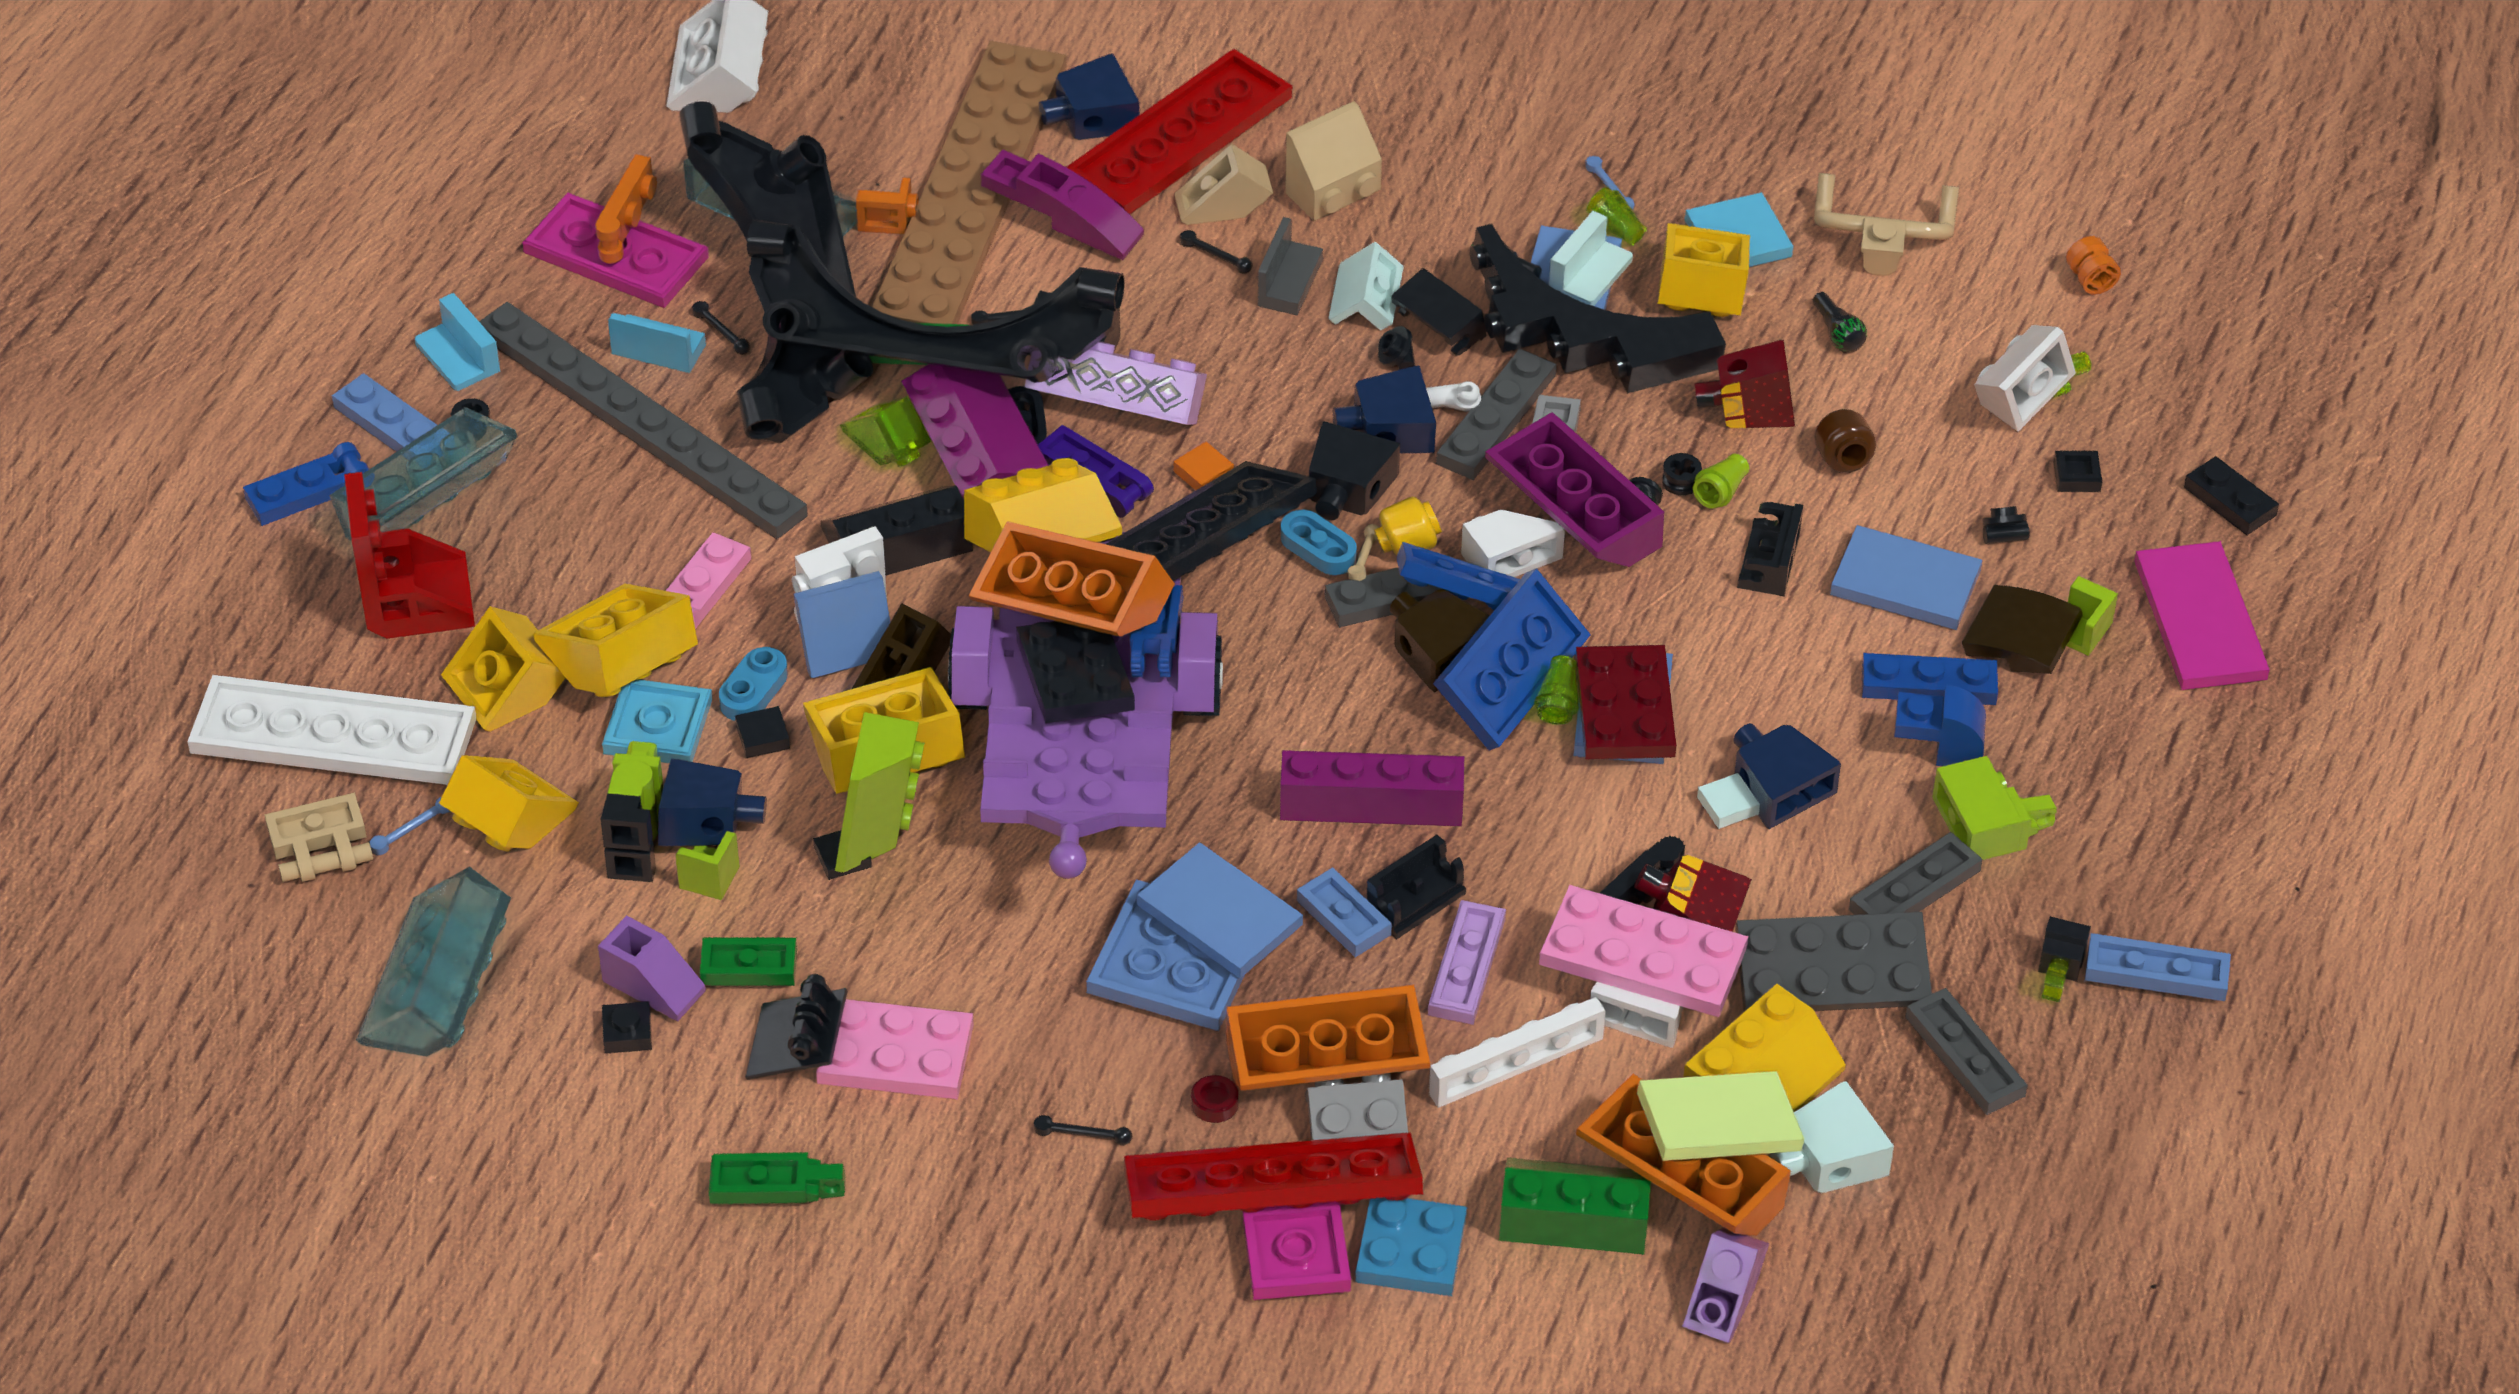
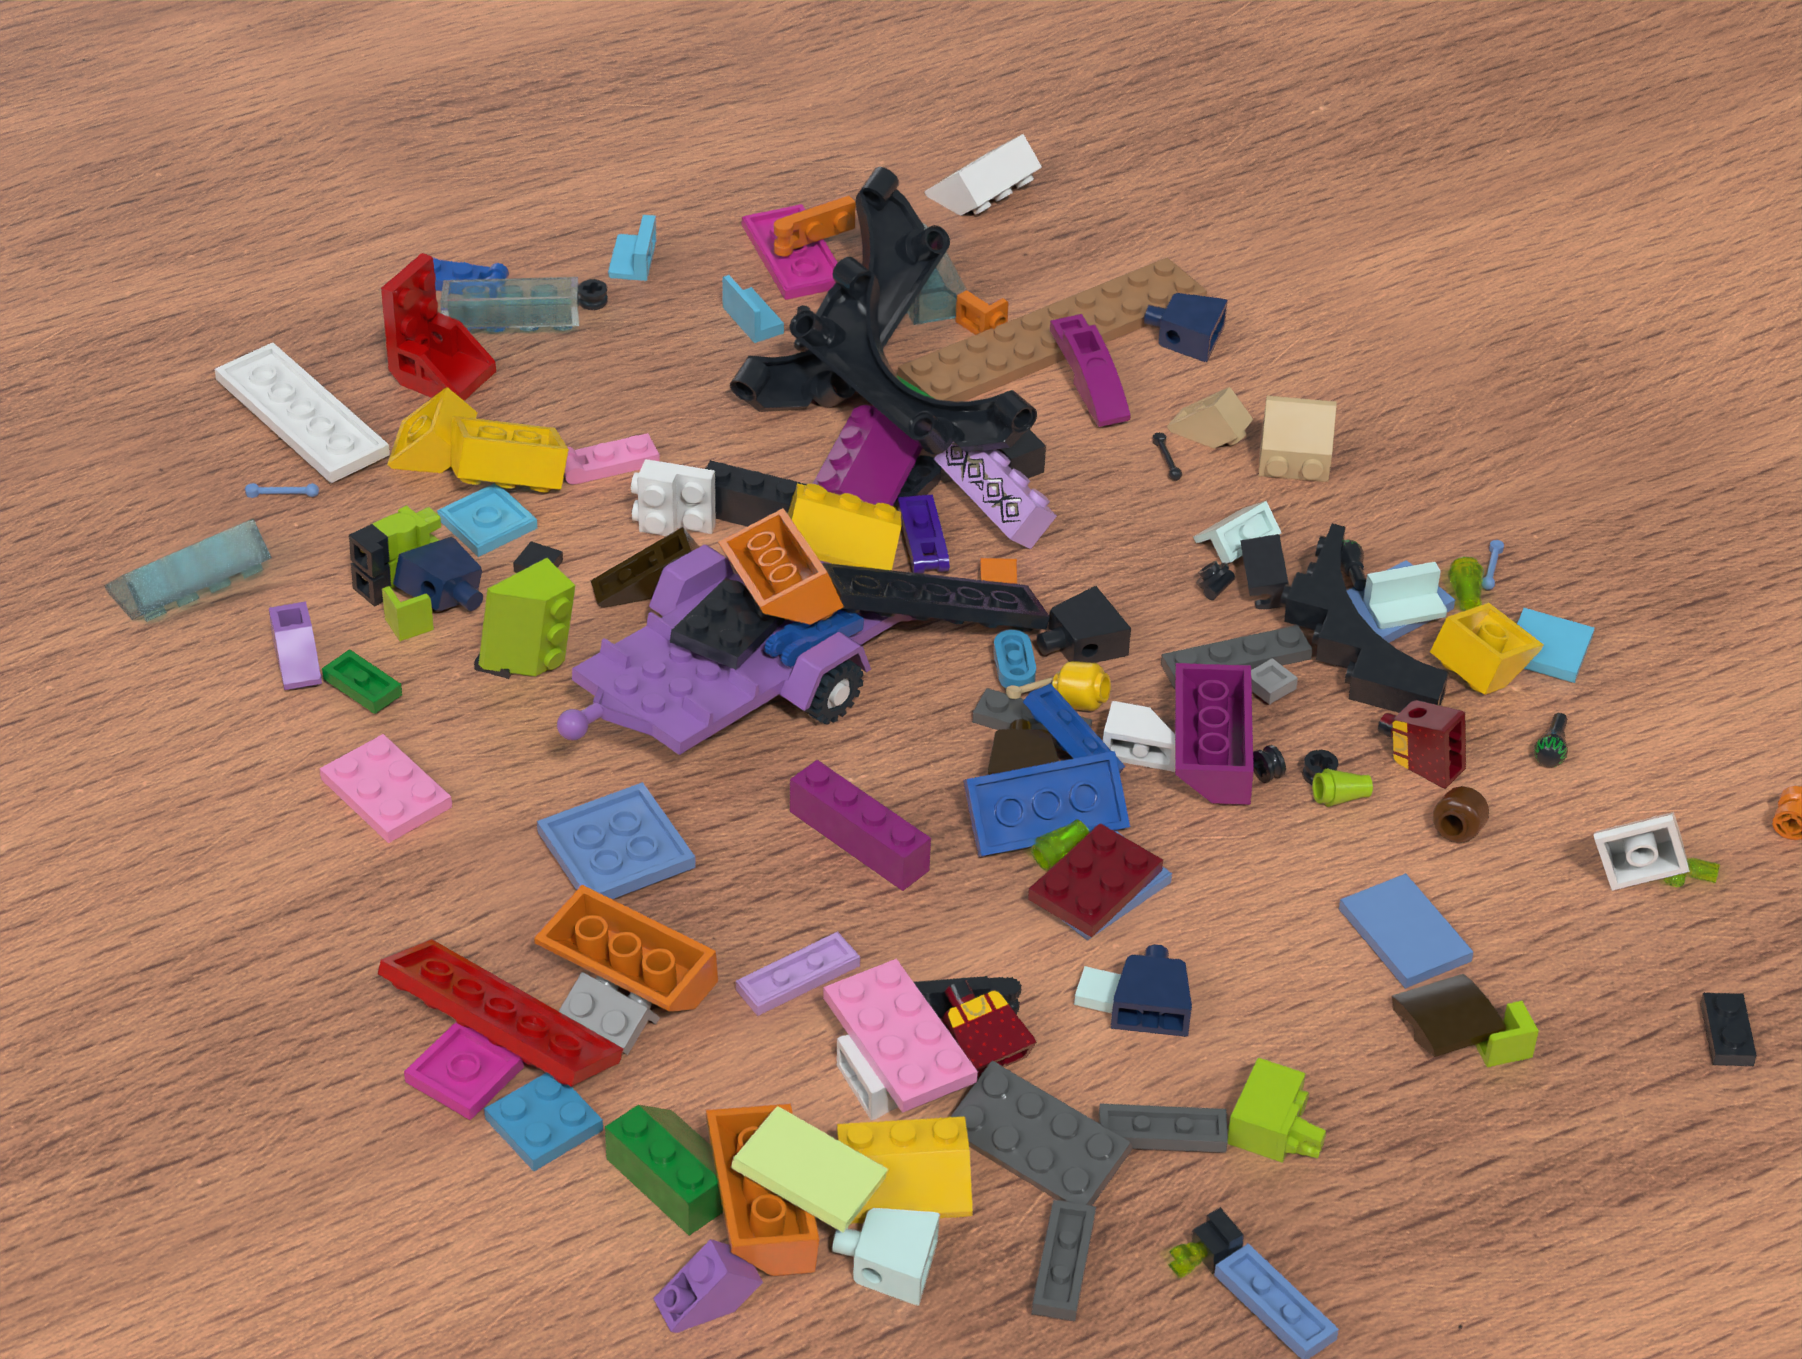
camera: 40 degrees right, 5 degrees down
(316, 827) = (224, 456): tan plate -> none
(381, 412) = (547, 256): medium blue plate -> none
(505, 801) = (338, 502): yellow slope -> none
(626, 1027) = (253, 674): black plate -> none
(645, 421) = (690, 353): dark grey plate -> none
(759, 676) = (569, 531): dark azure plate -> none
(773, 1178) = (218, 811): green hinge -> none
(797, 1030) = (336, 735): black hinge -> none
(842, 623) = (642, 517): medium blue tile -> none
(888, 432) = (818, 436): clear neon green slope -> none
(913, 696) = (607, 598): yellow slope -> none
(1044, 1126) = (416, 892): black hinge -> none
(1182, 130) = (1247, 370): red plate -> none
(1214, 1098) = (529, 952): dark red tile -> none
(1219, 910) = (665, 831): medium blue tile -> none
(1287, 271) = (1195, 488): dark grey panel -> none
(1344, 912) = (751, 889): medium blue plate -> none
(1394, 409) = (1159, 611): dark blue torso -> none
(1416, 886) = (814, 902): black hinge -> none
(1455, 396) = (1218, 629): white arm -> none
(1516, 1051) = (753, 1046): white plate -> none
(1771, 549) = (1326, 855): black hinge -> none
(1884, 236) = (1644, 701): tan piece -> none
(1888, 674) = (1343, 1005): blue plate -> none
(1951, 720) = (1310, 1036): blue brick -> none
(2005, 526) = (1520, 941): black plate -> none
(2077, 471) = (1624, 941): black tile -> none
(2201, 615) = (1604, 1093): dark pink tile -> none

